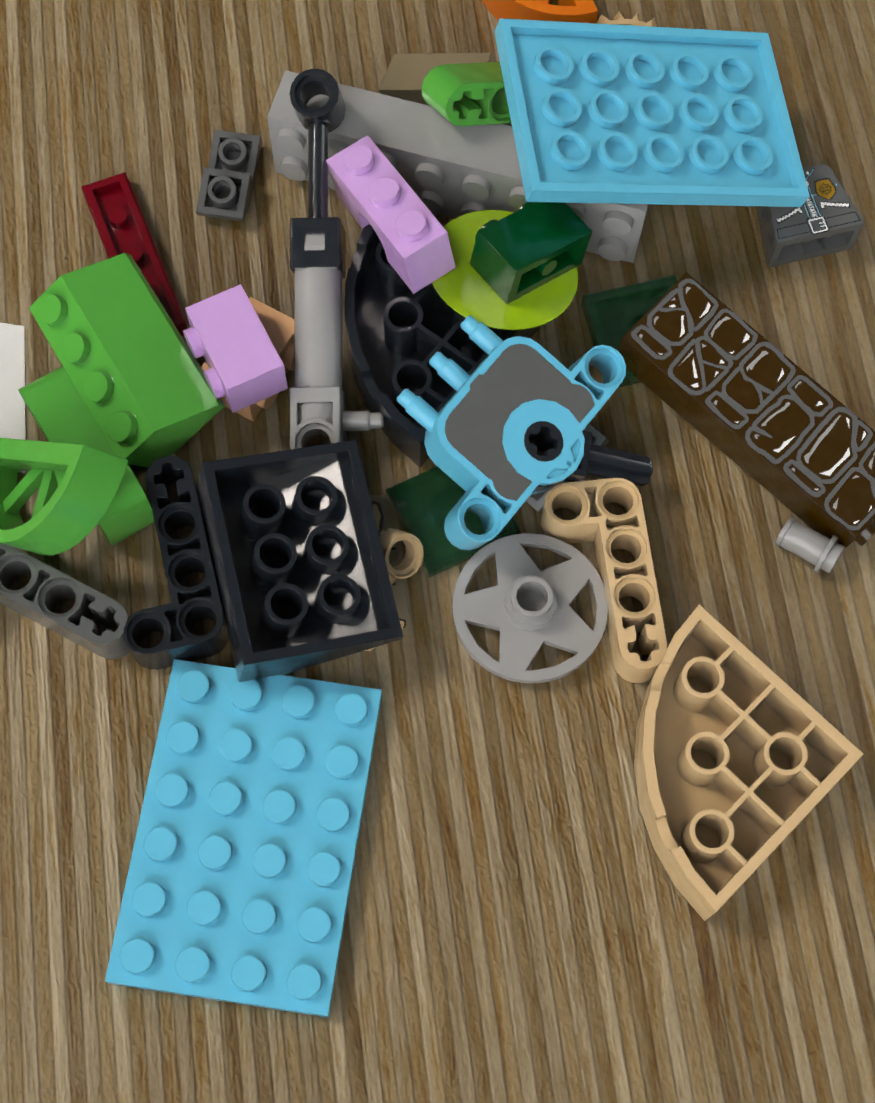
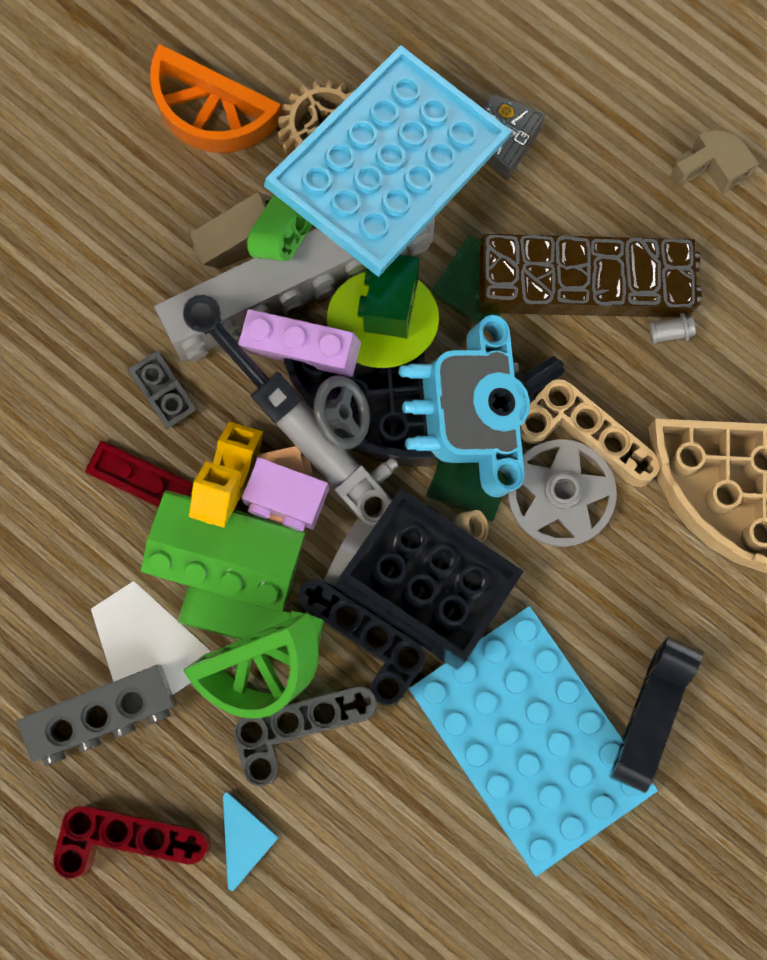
camera: 40 degrees left, 10 degrees up
(168, 278) = (224, 480): none -> yellow arch
(342, 302) = (338, 413): none -> dark grey piece
(400, 921) = (654, 713): none -> black beam

